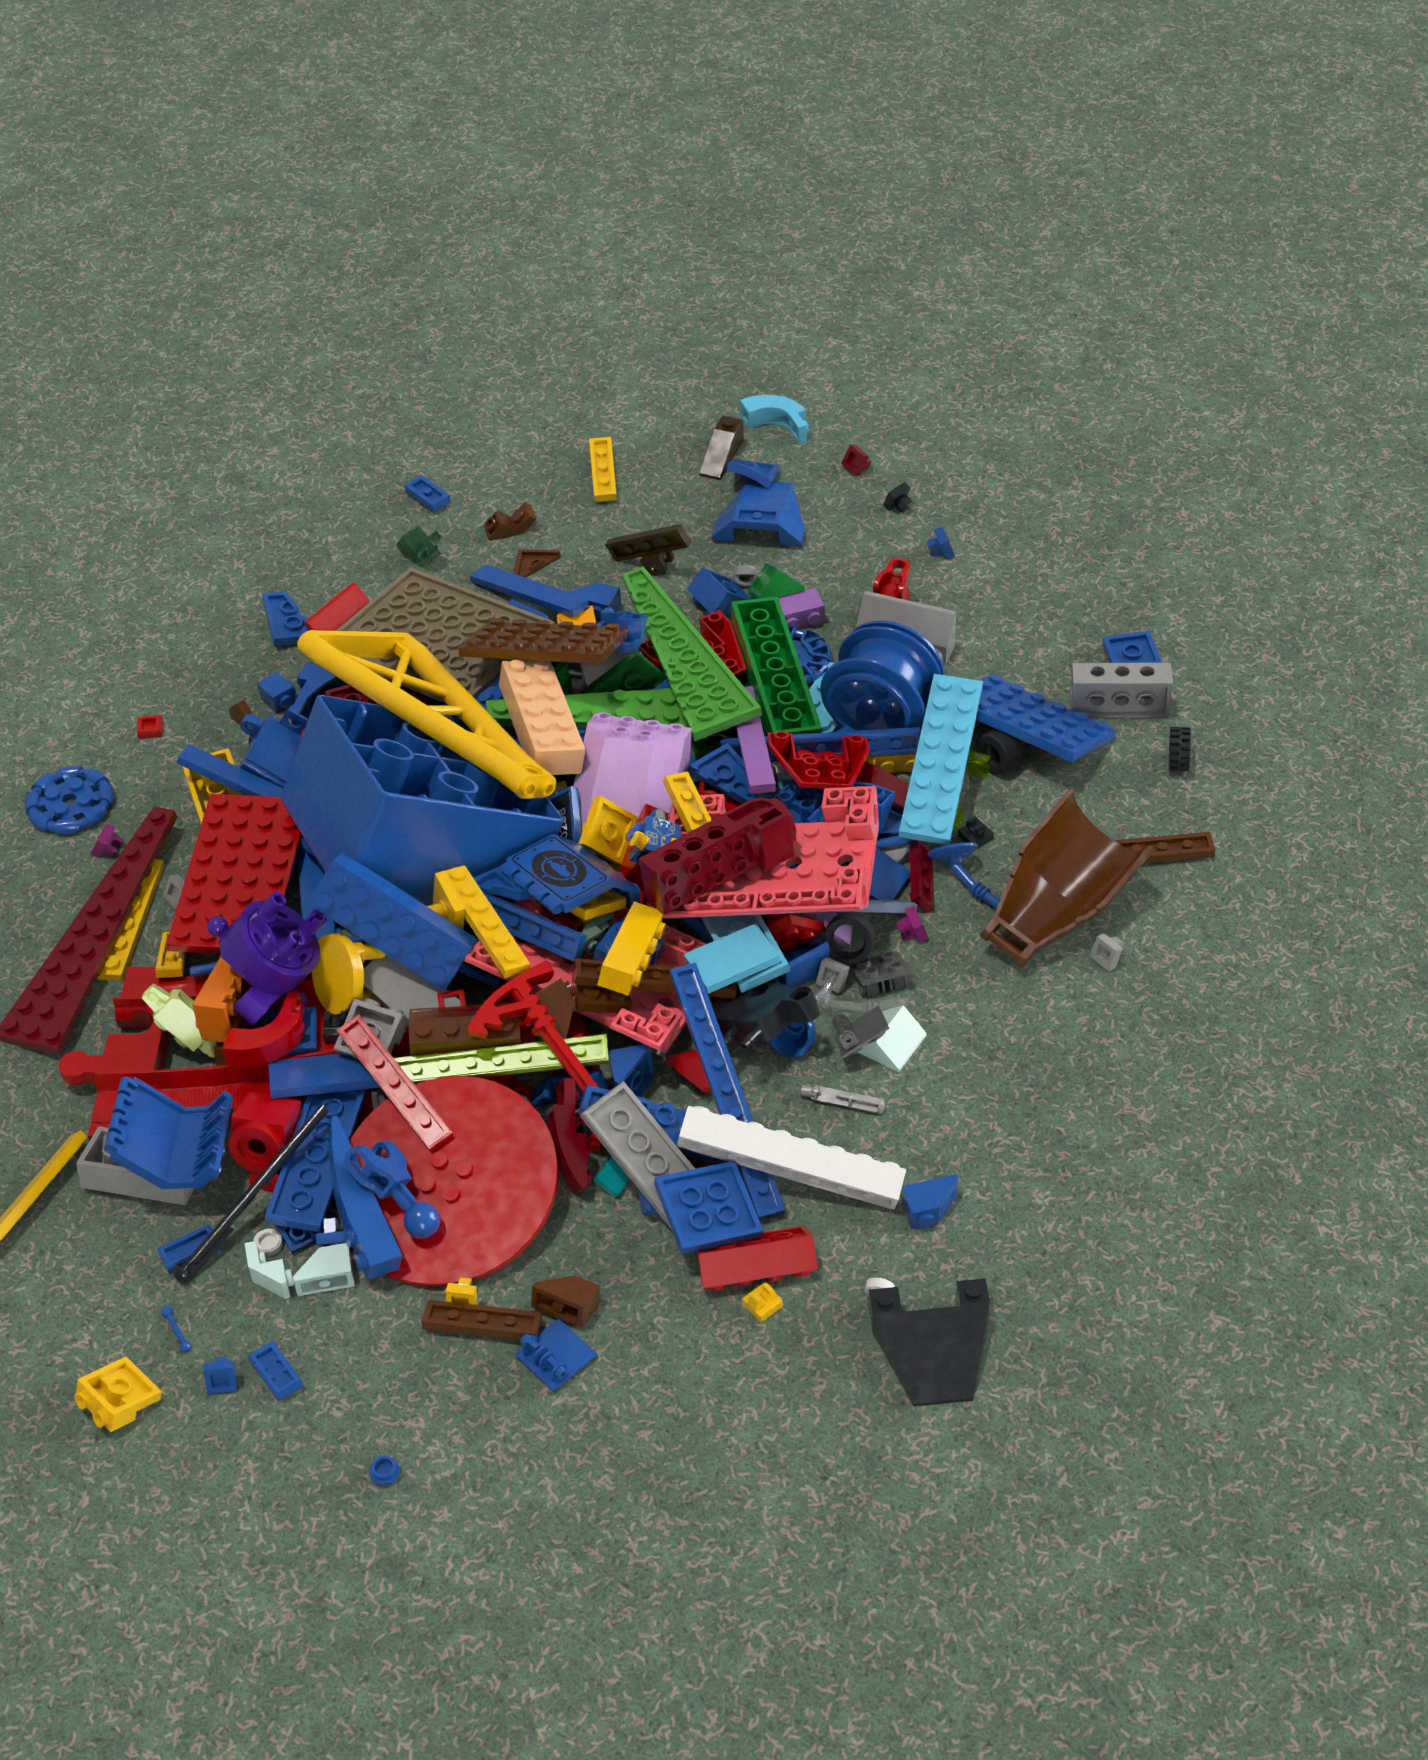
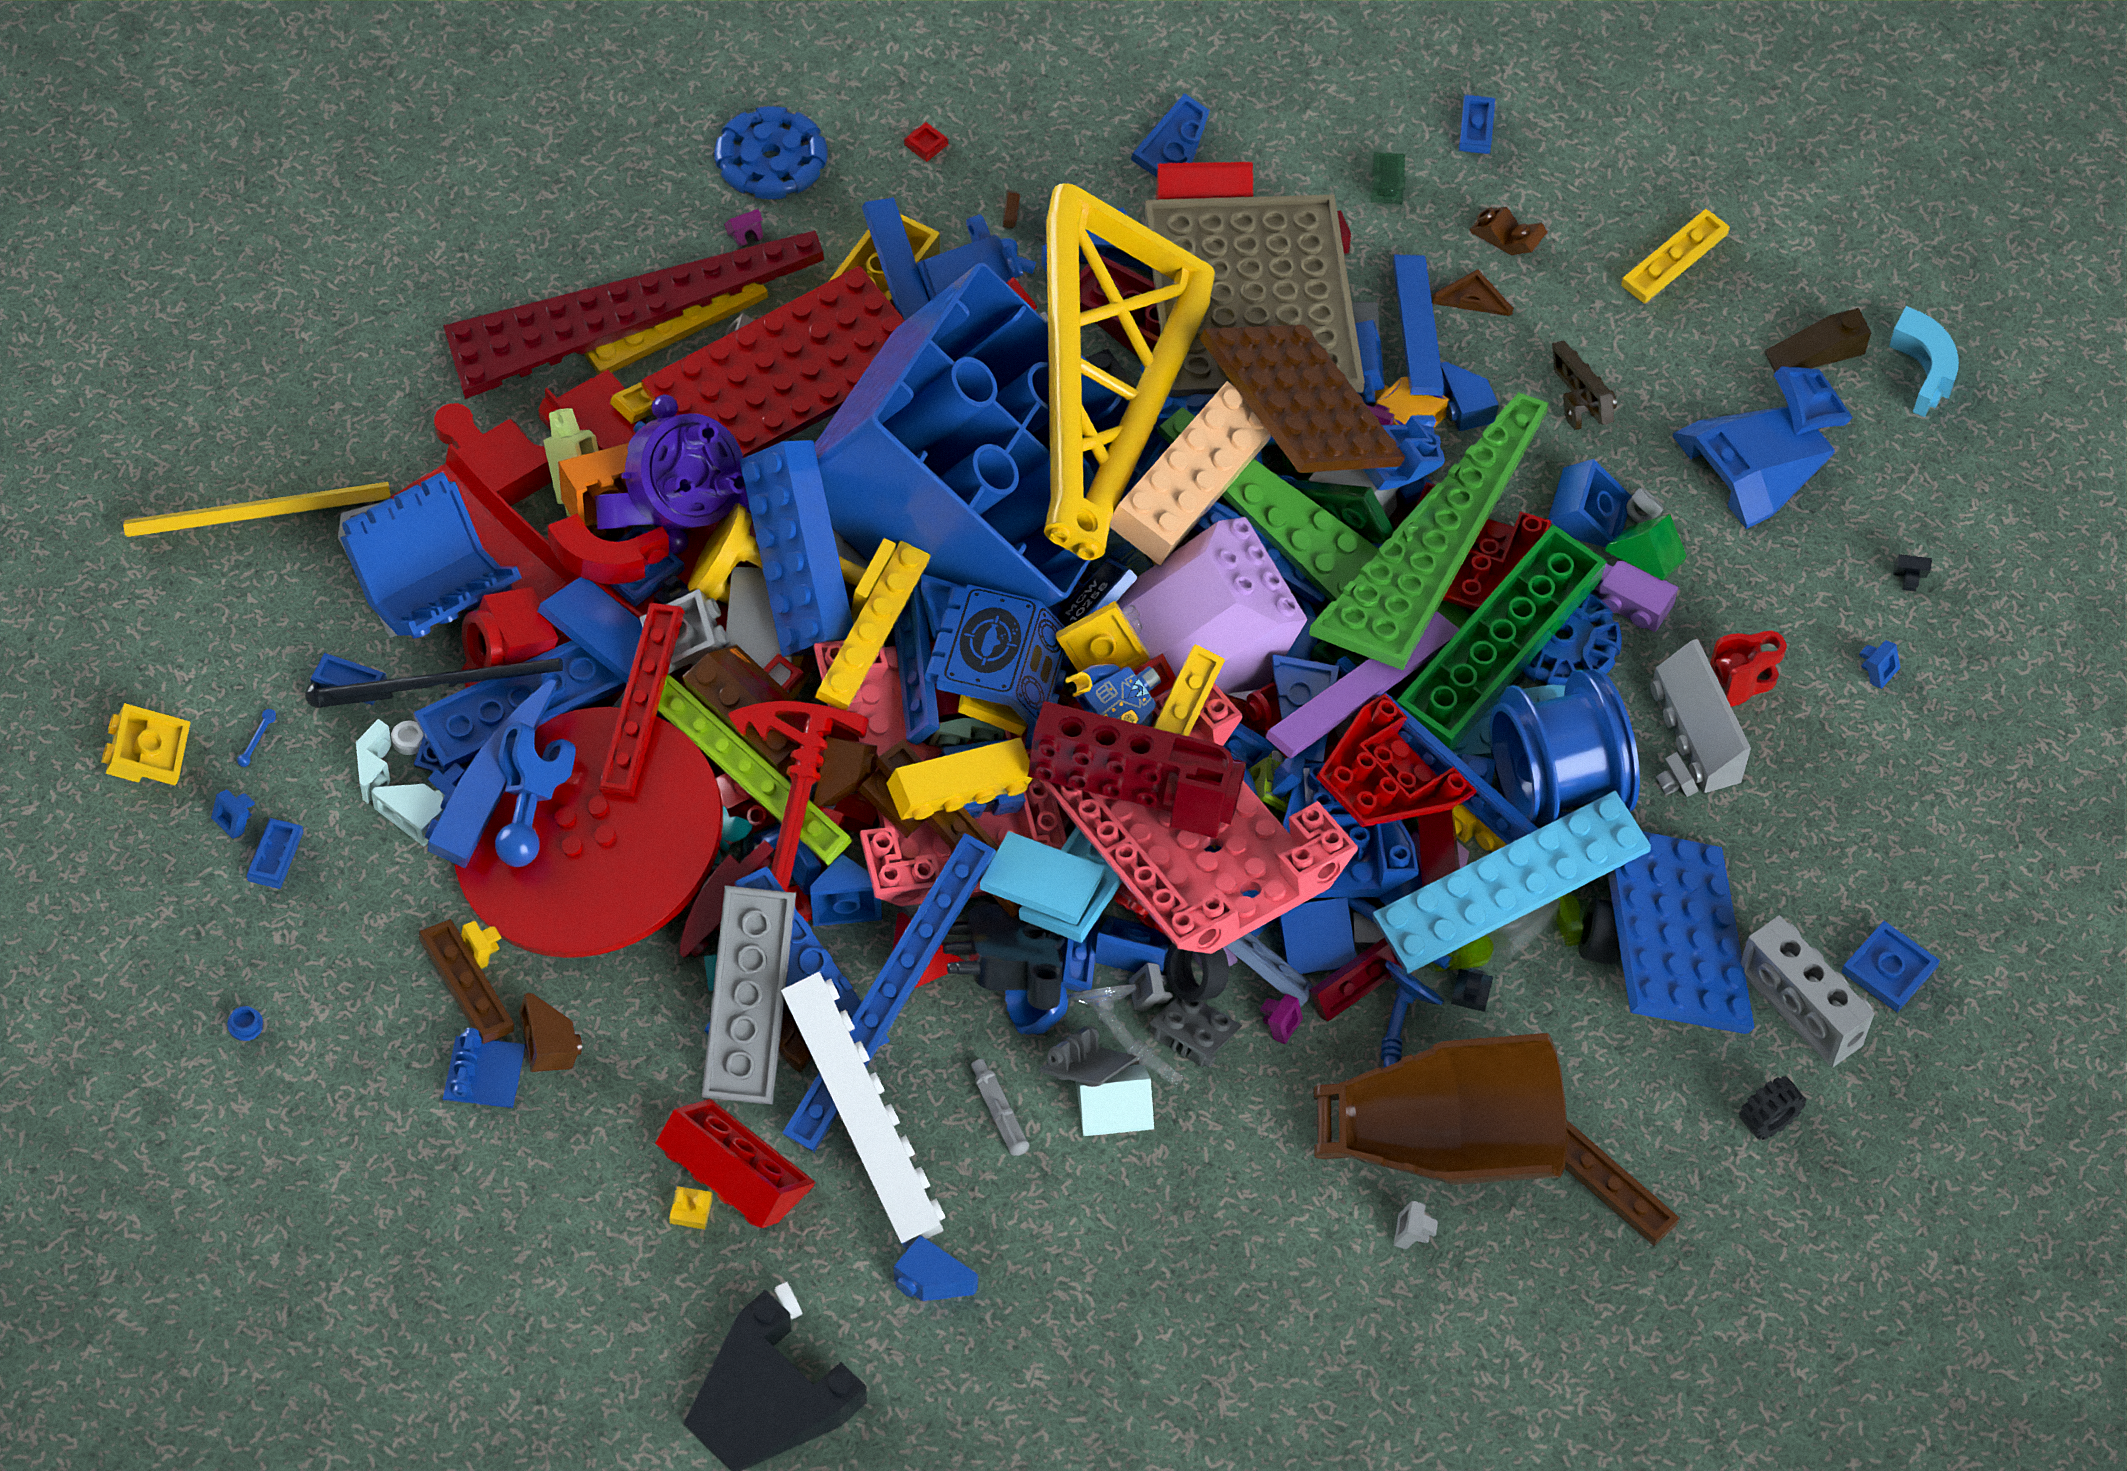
camera: 45 degrees right, 10 degrees up
(708, 1207) = (740, 1078): blue plate -> none
(856, 460) = (1932, 486): dark red tile -> none

